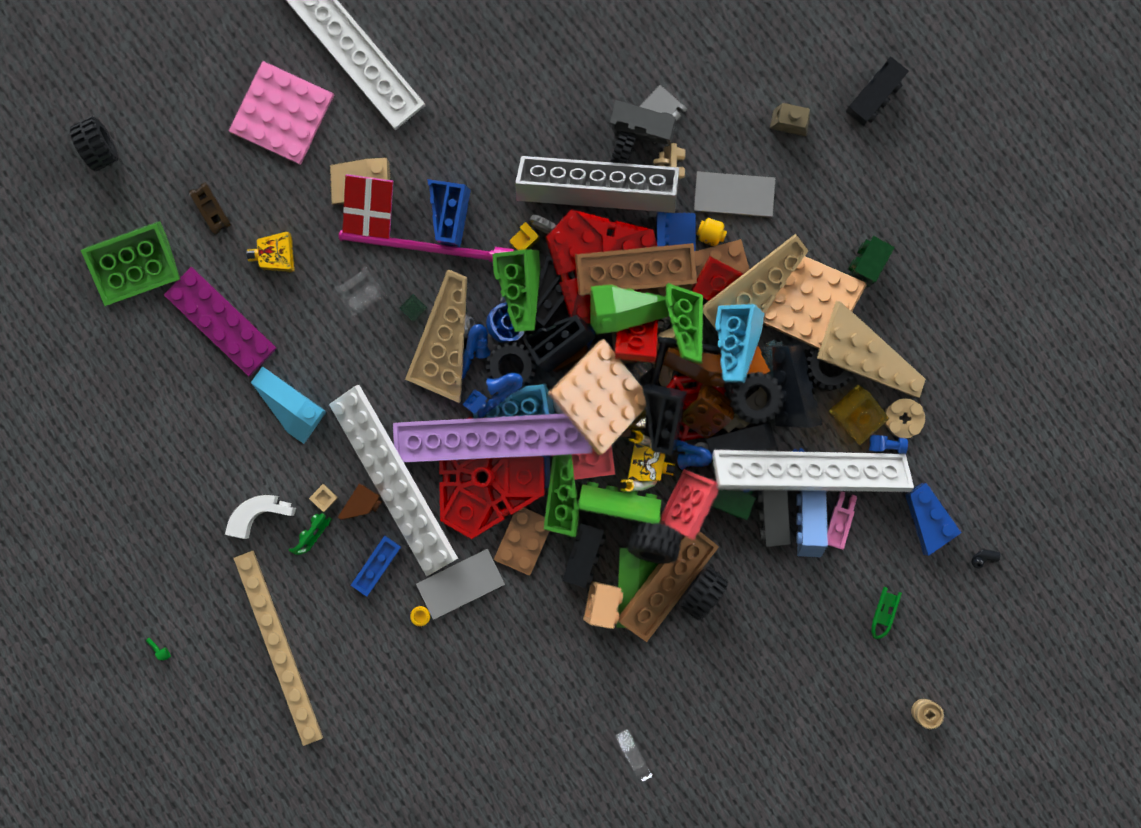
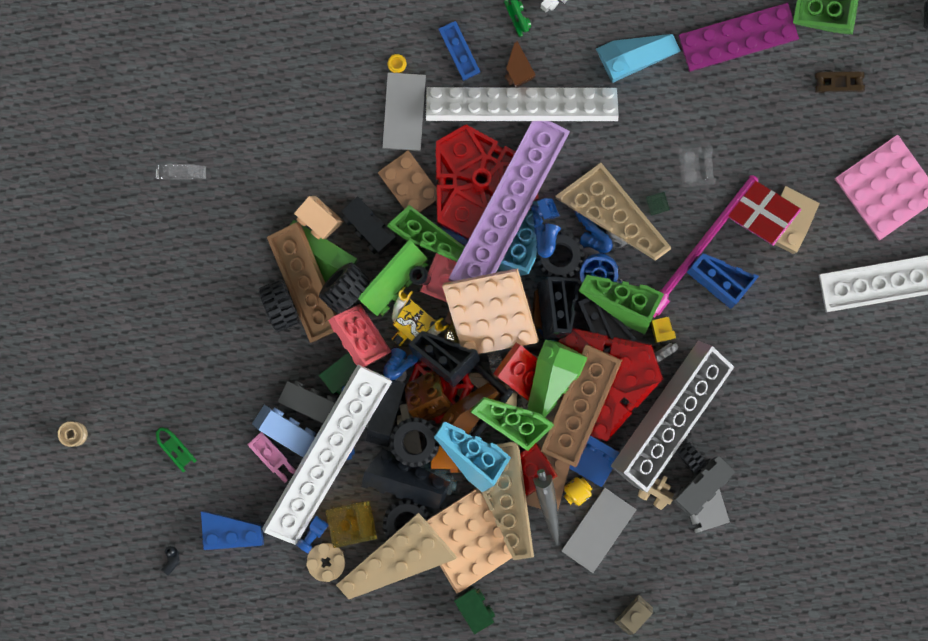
camera: 115 degrees right, 0 degrees up
(274, 253) = (770, 113): yellow torso -> none
(323, 498) = (540, 39): tan plate -> none
(603, 485) = (419, 276): none -> black cone
(737, 251) = (548, 503): none -> dark grey piece

